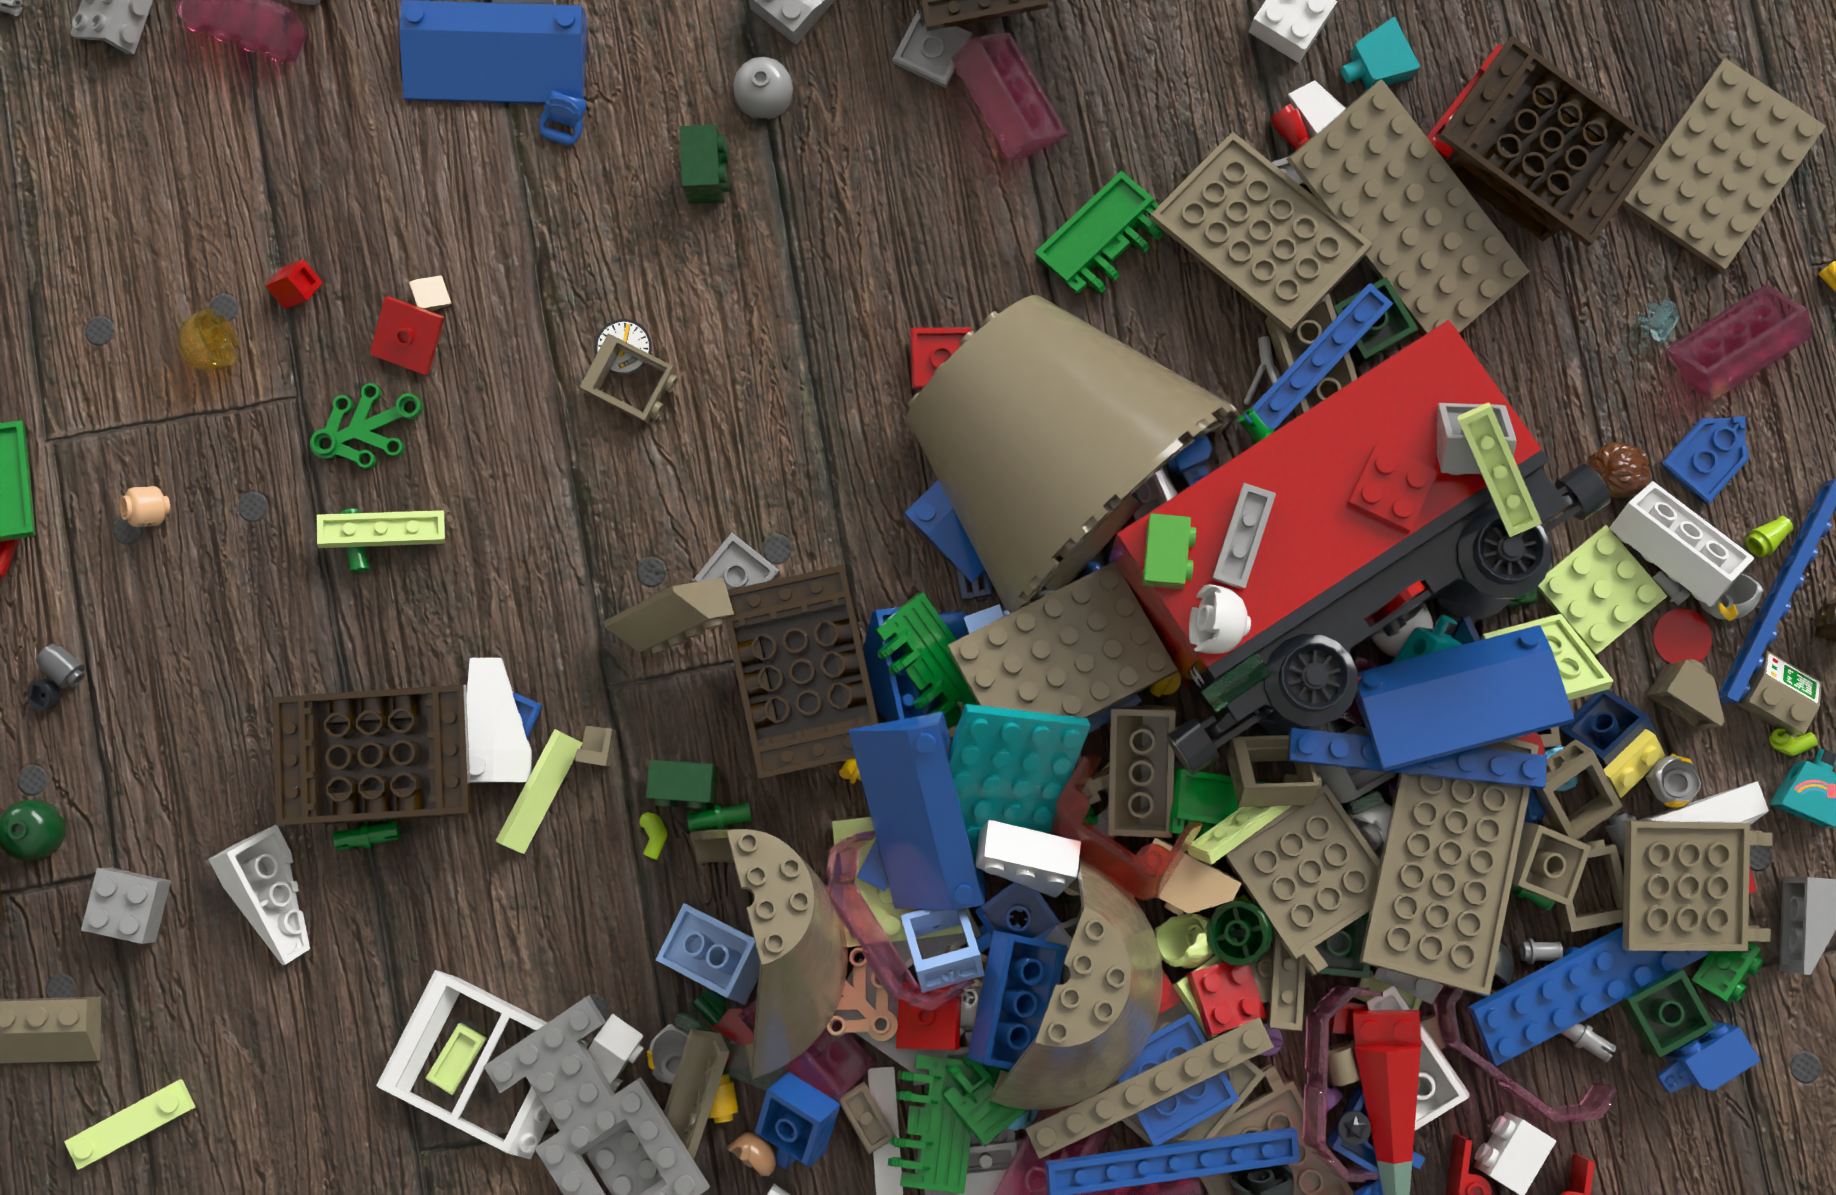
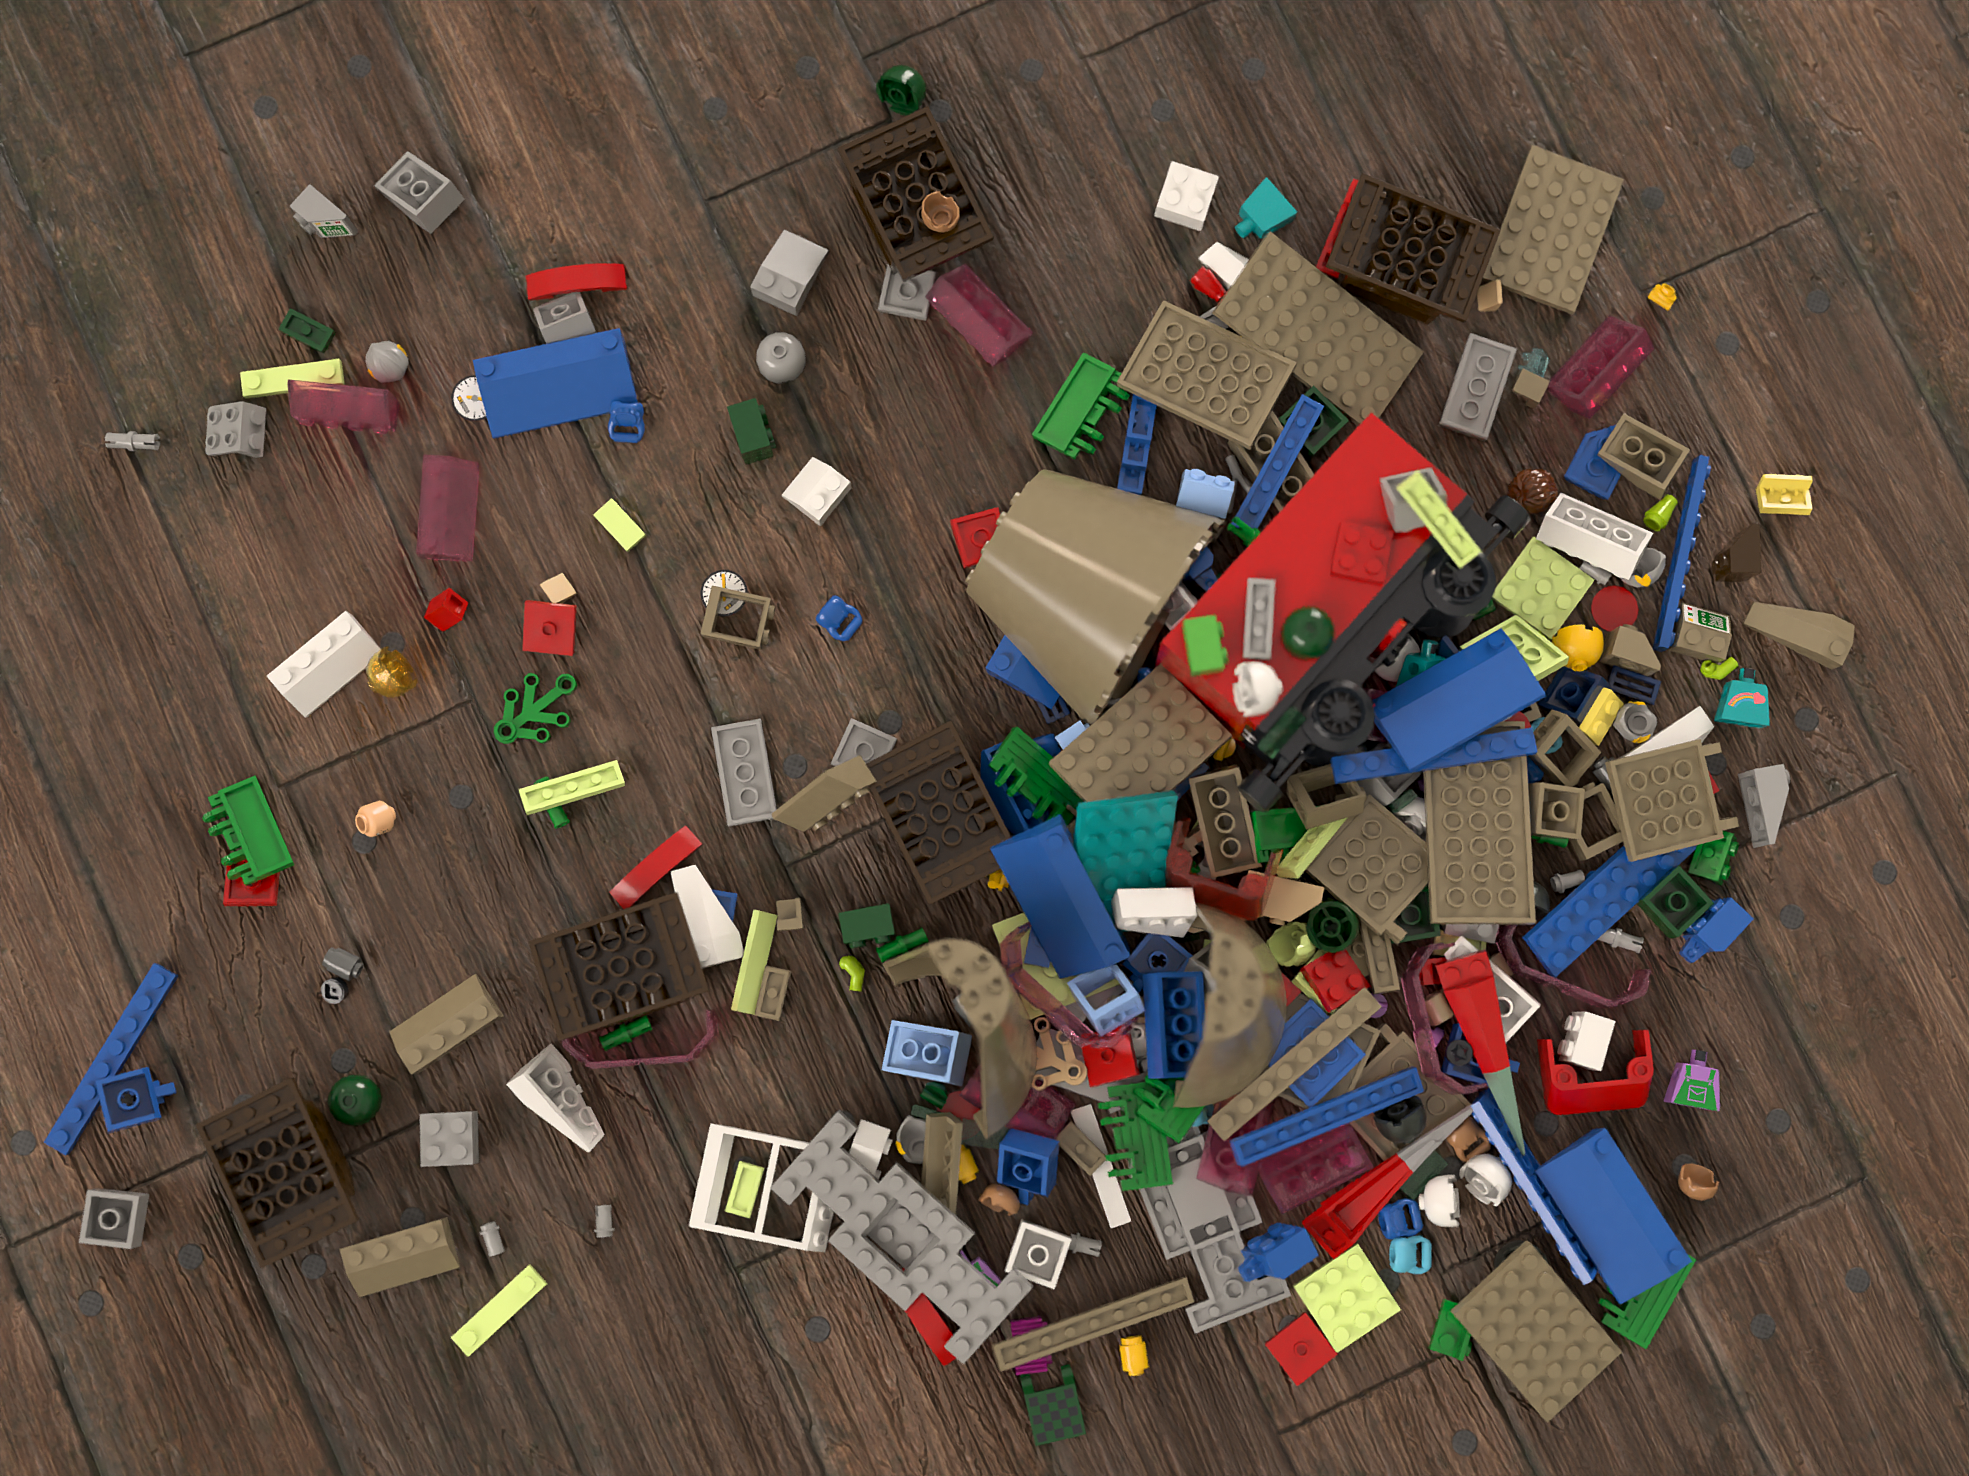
camera: 25 degrees left, 0 degrees up
(135, 311) = (324, 664): none -> white slope
(144, 1037) = (492, 1238): none -> light grey pin
(159, 770) = (445, 1025): none -> dark tan slope
(280, 1051) = (603, 1221): none -> light grey pin
(305, 848) = (712, 1032): none -> clear pink windscreen
(327, 166) = (447, 508): none -> clear pink slope
(385, 48) = (467, 399): none -> white sticker
(455, 648) = (655, 867): none -> red slope
(522, 236) = (619, 525): none -> yellowish green tile
(551, 834) = (772, 993): none -> dark tan plate
(589, 563) = (744, 772): none -> light grey tile
(745, 404) = (834, 613): none -> blue piece
(764, 255) = (817, 490): none -> white slope
(1156, 296) = (1136, 445): none -> blue slope
(1221, 371) = (1205, 493): none -> light blue slope
(1300, 568) = (1308, 632): none -> dark green cylinder
(1584, 330) = (1477, 387): none -> light grey tile
(1627, 225) = (1490, 296): none -> tan slope
(1631, 670) = (1581, 646): none -> yellow cylinder
(1649, 345) = (1531, 387): none -> dark tan panel
(1704, 750) = (1632, 695): none -> dark blue tile
(1766, 462) = (1643, 455): none -> dark tan slope

